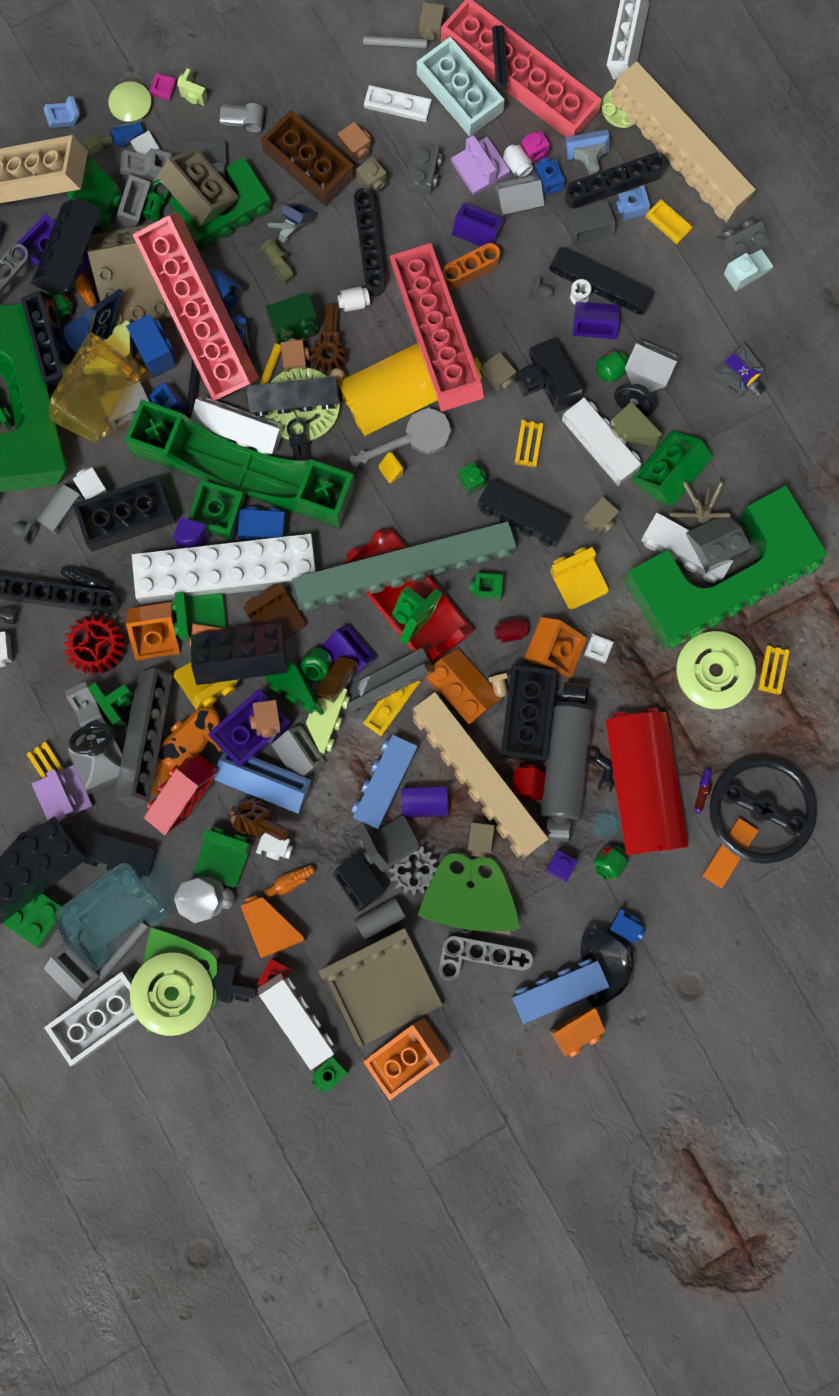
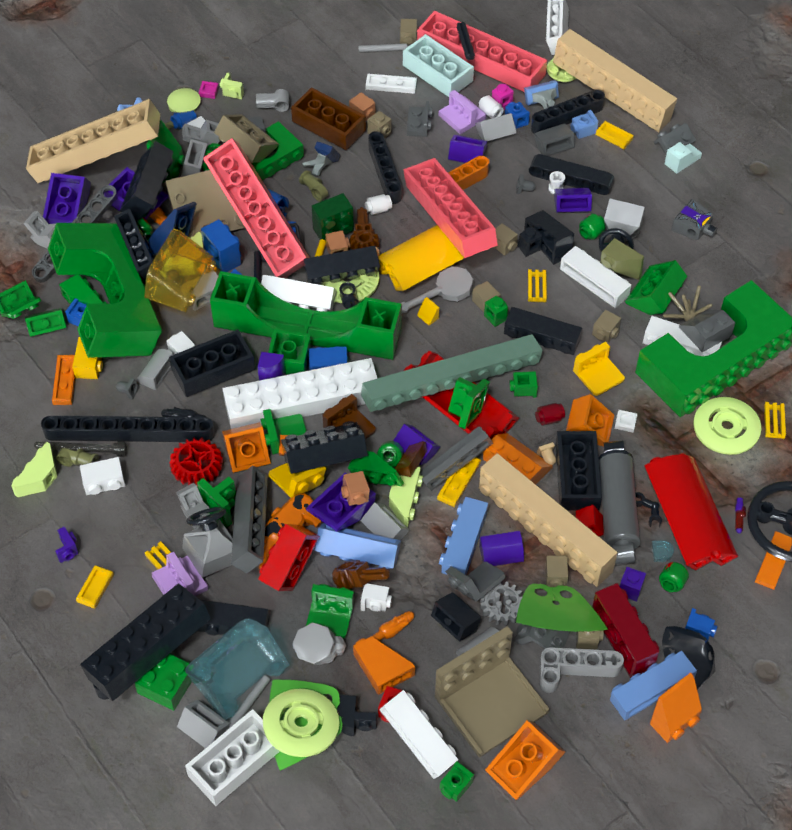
camera: 10 degrees left, 25 degrees down
(462, 453) = (483, 293): none -> dark tan brick
(540, 927) = (625, 629): none -> dark red brick

